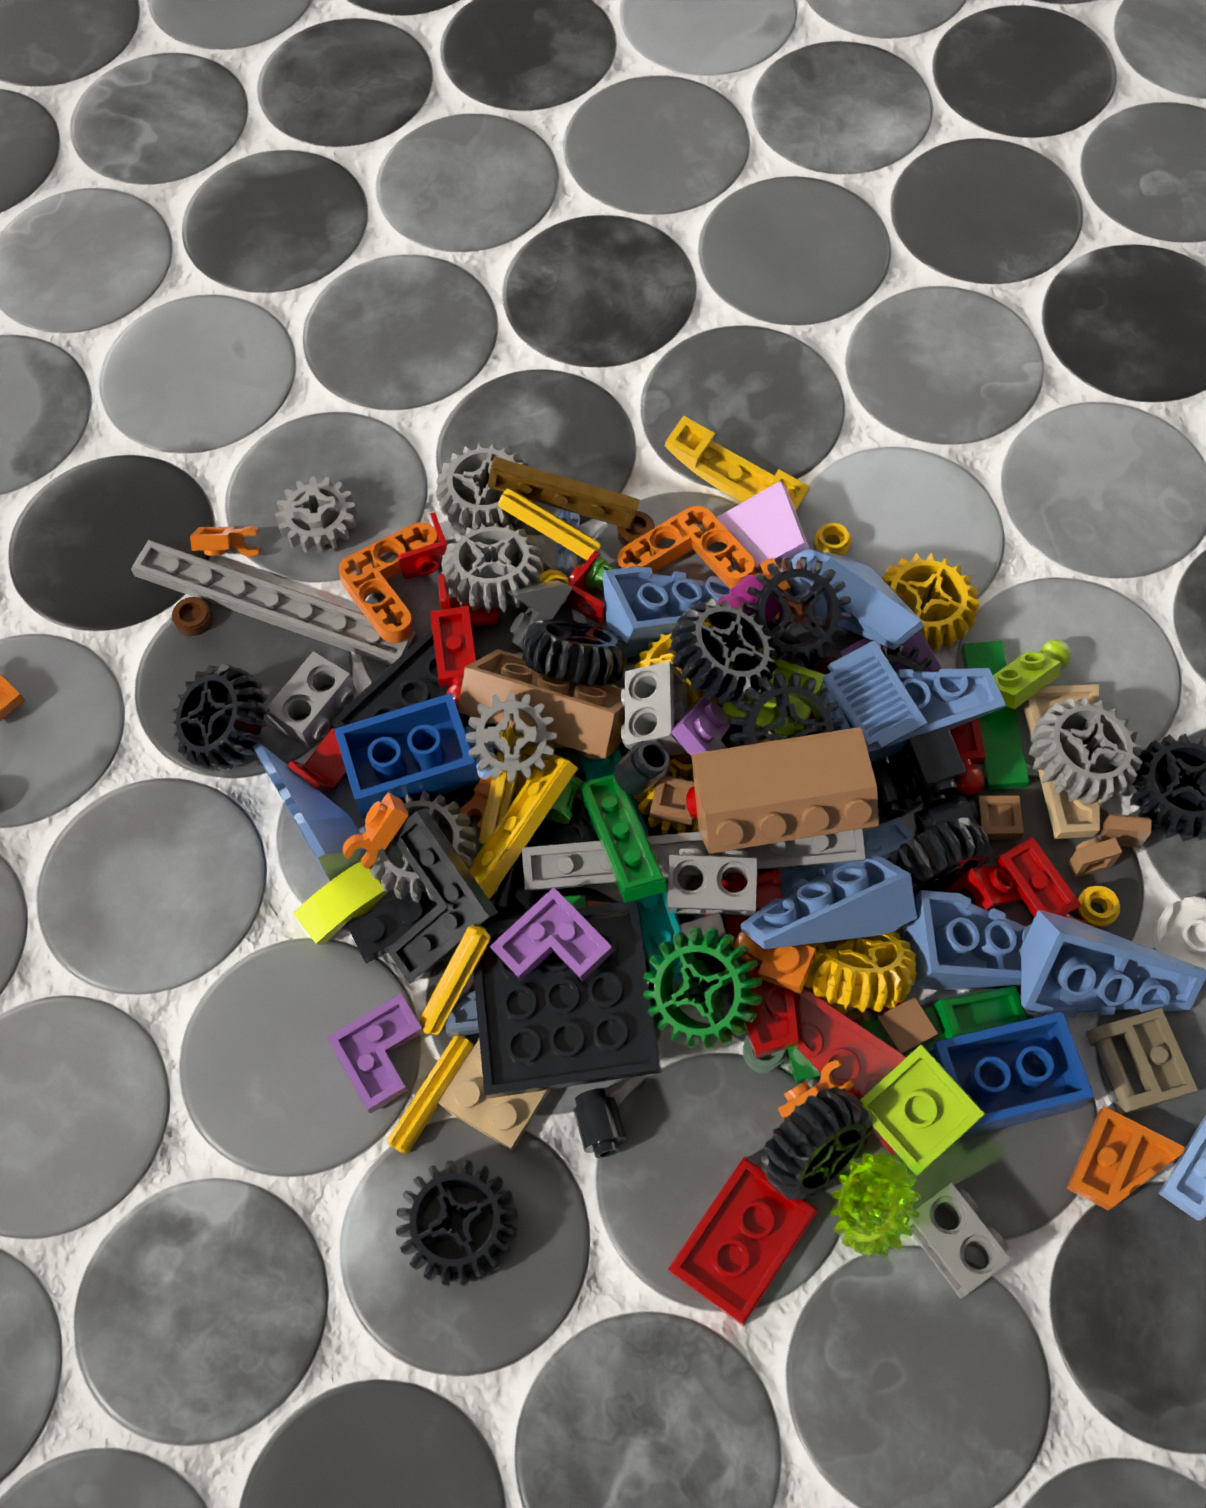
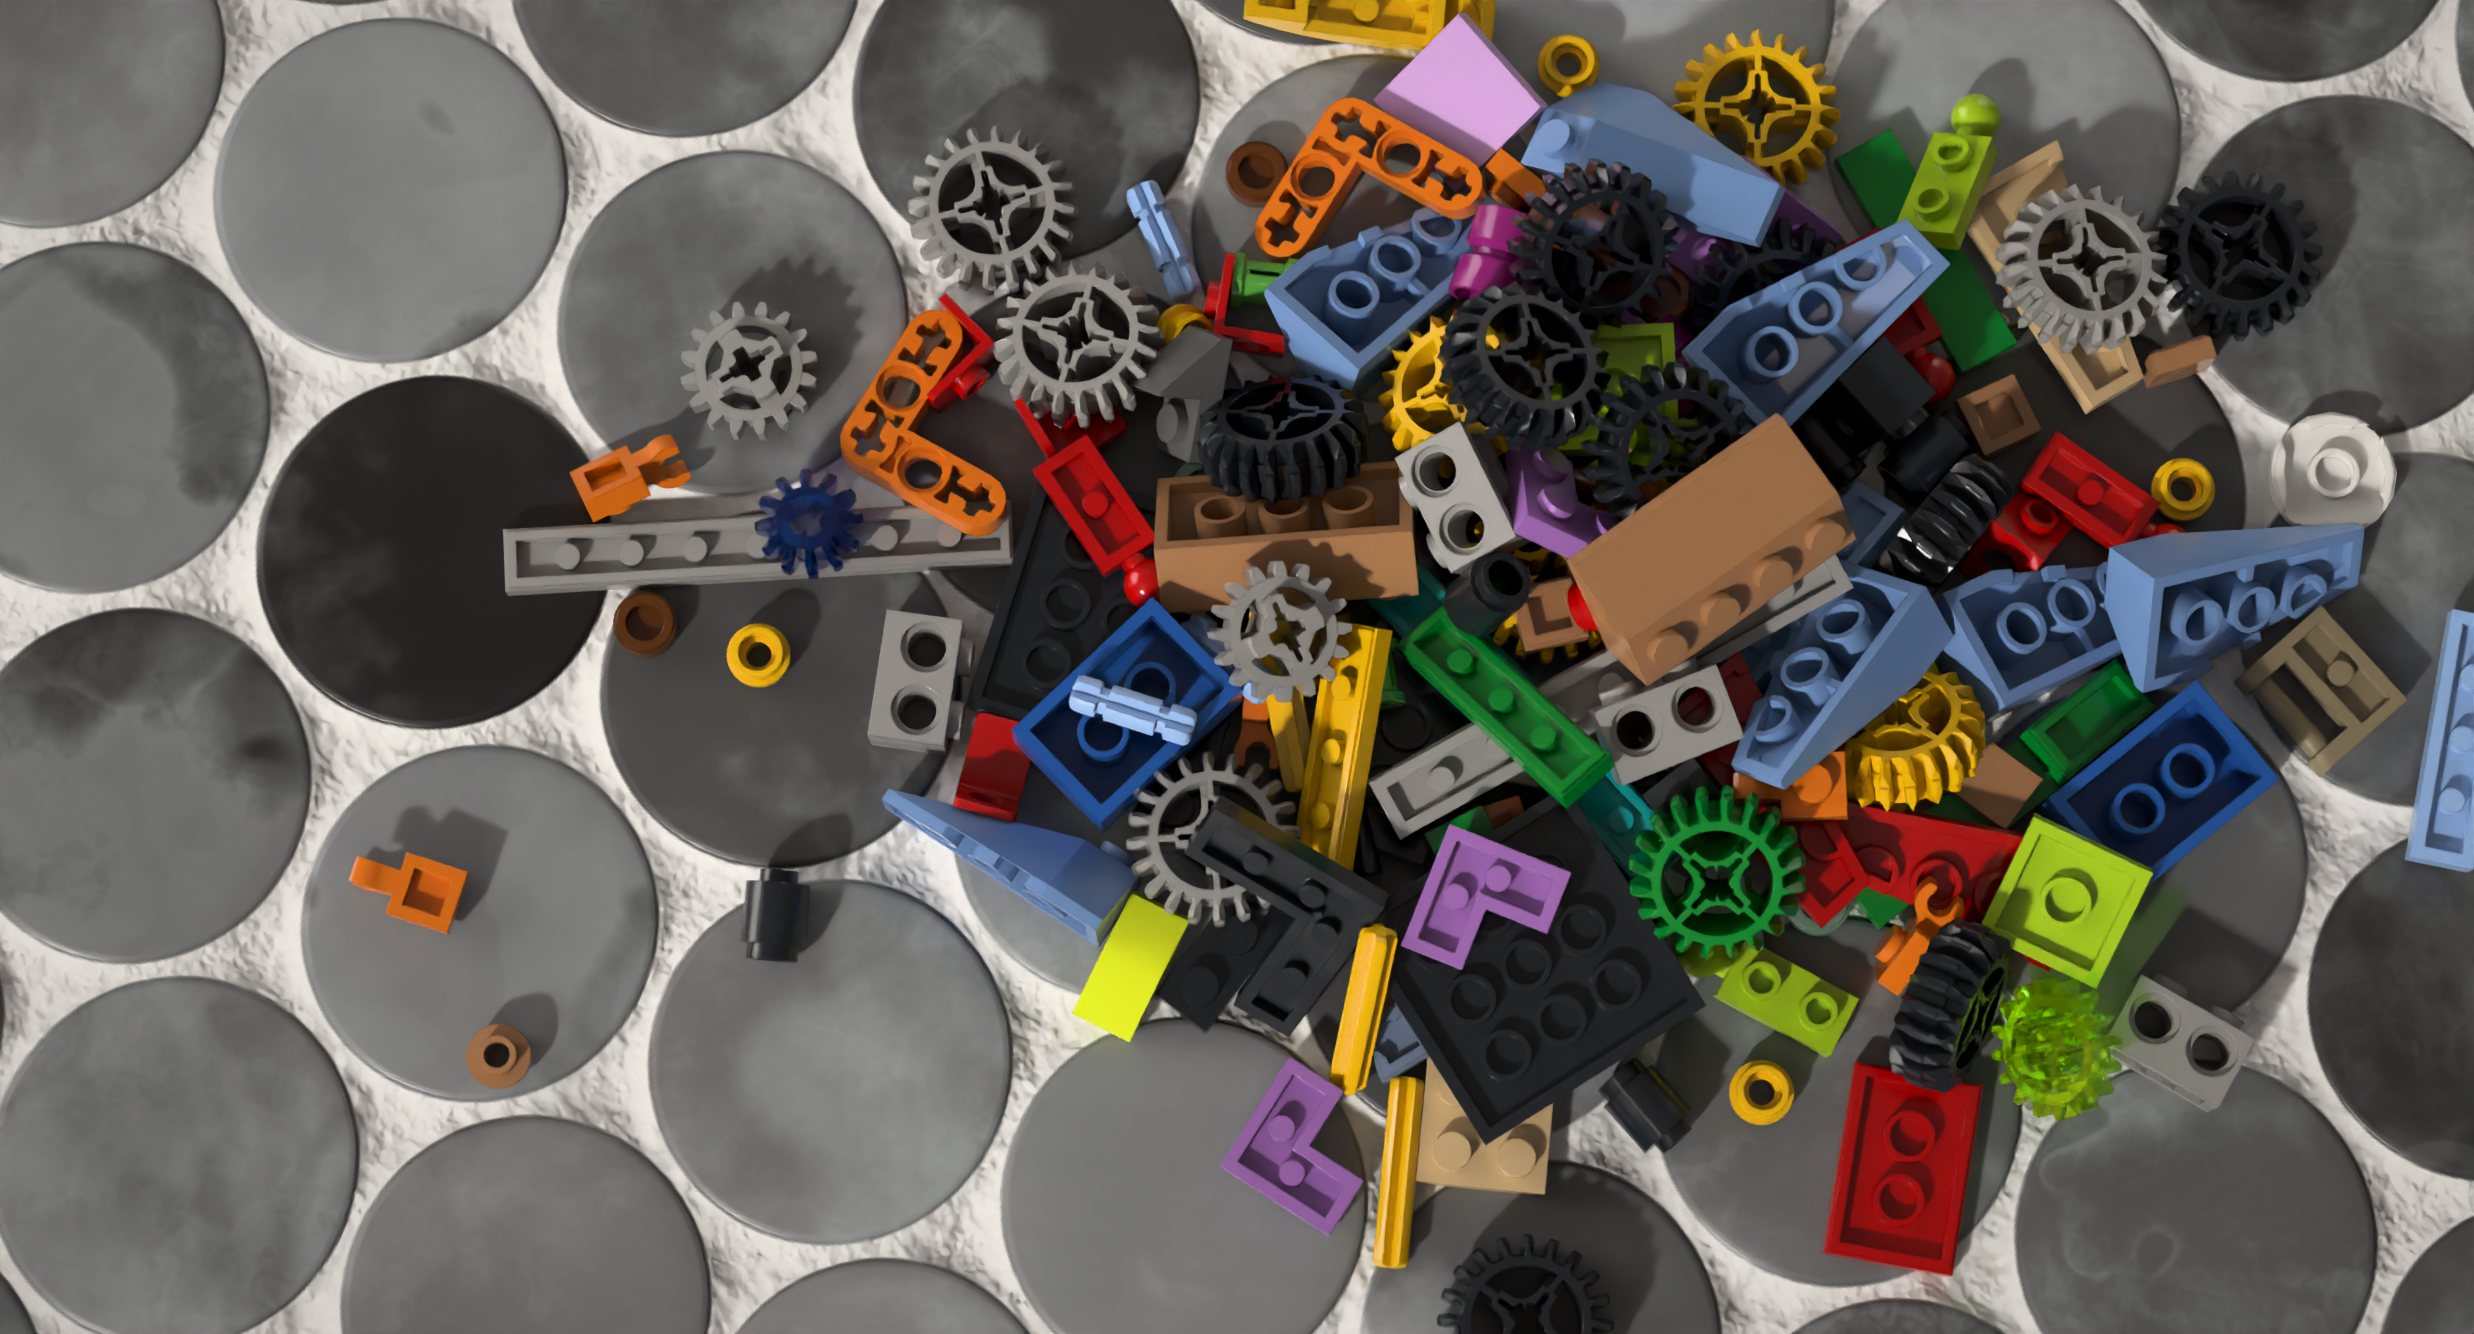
camera: 30 degrees left, 15 degrees up
(164, 788) = (775, 916): none -> black brick
(220, 717) = (776, 736): black gear -> none
(236, 645) = (753, 636): none -> yellow plate
(299, 594) = (834, 523): none -> clear blue gear
(381, 826) = (1167, 845): orange plate -> none
(404, 744) = (1133, 710): none -> light blue axle
(548, 523) = (1134, 238): yellow axle -> none
(563, 493) = (1133, 180): pearl gold tile -> none
(678, 1135) = (1765, 1072): none -> yellow plate
(712, 1090) = (1776, 993): none -> lime plate
(873, 696) = (1763, 340): medium blue window -> none
(1094, 856) = (2148, 419): medium nougat plate -> none
(1119, 1159) = (2339, 838): orange wing -> none

